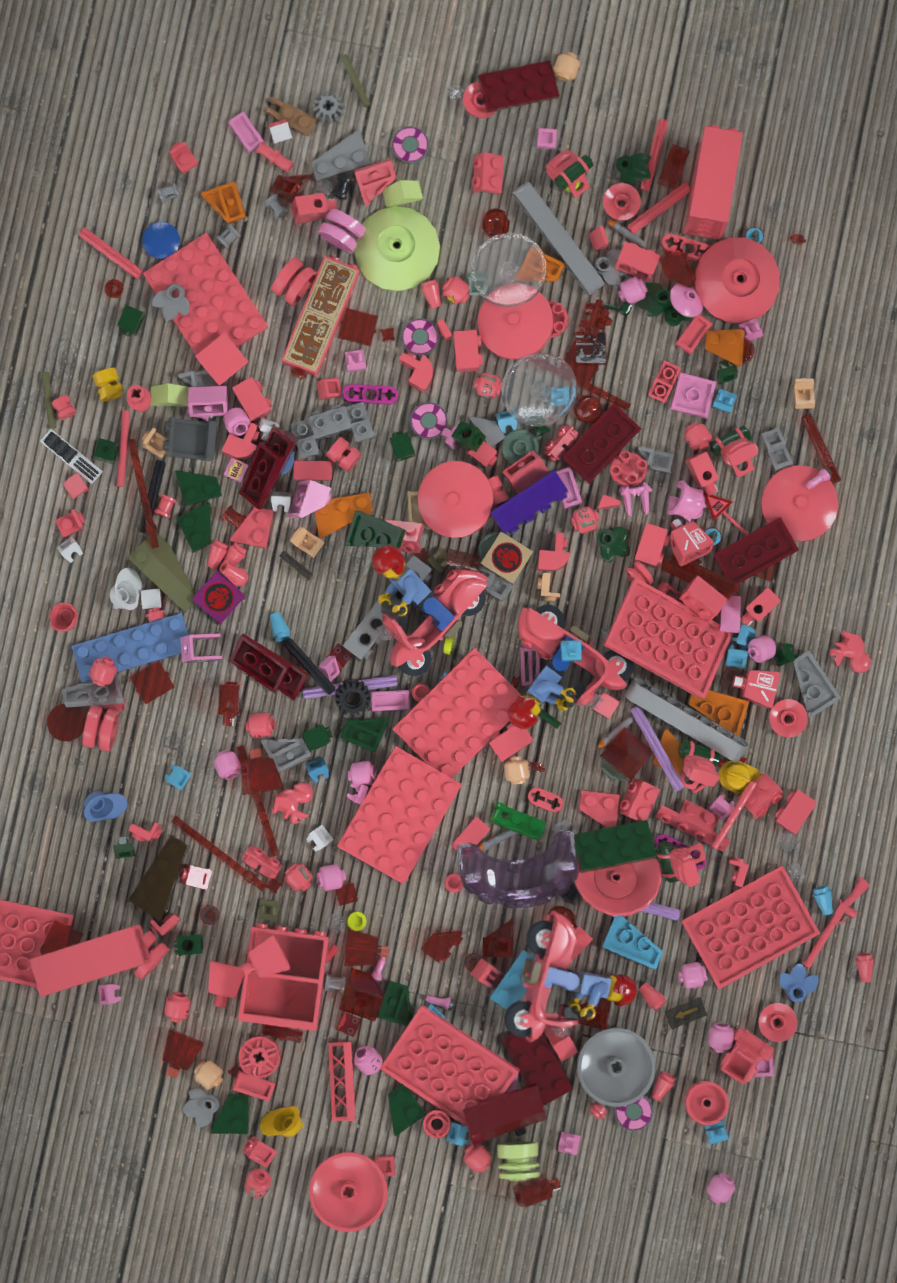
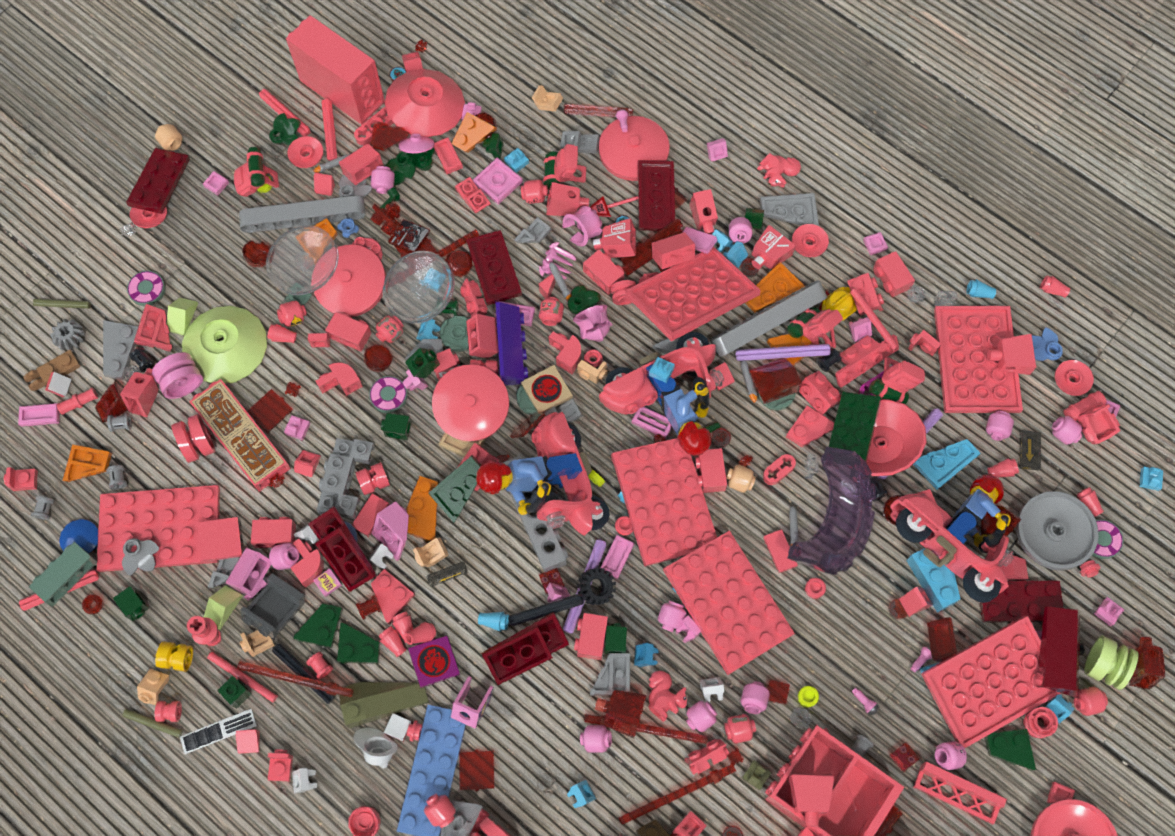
camera: 60 degrees left, 15 degrees down
(76, 381) = (151, 686): none -> light nougat bracket
(123, 250) = (62, 574): none -> sand green brick
(231, 693) = (529, 698): clear red torso -> none
(260, 725) = (575, 686): coral head -> none
(291, 841) = (701, 716): none -> bright pink head
(309, 716) = (591, 637): none -> coral brick
(362, 995) = (883, 727): clear red slope -> none
(363, 949) = (839, 704): clear red torso -> none
(365, 732) = (634, 593): dark green wing -> none
(384, 401) = (321, 439): dark pink beam -> none
(396, 1004) = (906, 701): dark green wing -> none
(420, 337) = (311, 363): tile -> none
(439, 560) = (516, 447): olive tile -> none
(440, 944) = (868, 628): clear red slope -> none
(455, 392) = (377, 358): none -> clear red hair
(463, 1009) = (942, 639): none -> clear red slope
(488, 173) = (211, 240): coral bracket -> none
(499, 942) = (892, 573): clear red slope -> none
(518, 821) = (787, 502): green plate -> none
(548, 734) = (721, 438): none -> clear red tile
(565, 577) = (593, 354): none -> coral plate
(566, 281) = (347, 223): none -> medium blue plate
(593, 563) = (593, 323): none -> bright pink helmet
(617, 512) = (560, 281): none -> light grey piece
(628, 469) = (528, 257): coral dish -> none
(669, 793) = (828, 360): none -> black bush
(673, 167) = (304, 101): clear red slope -> none
(716, 1096) = (1123, 470): coral wheel -> none
(767, 957) = (1014, 354): none -> coral torso
(776, 240) = (412, 61): none -> coral slope
(821, 780) = (875, 243): none -> bright pink tile
(839, 583) = (717, 149): none -> bright pink tile
(842, 908) = (994, 281): coral piece -> none

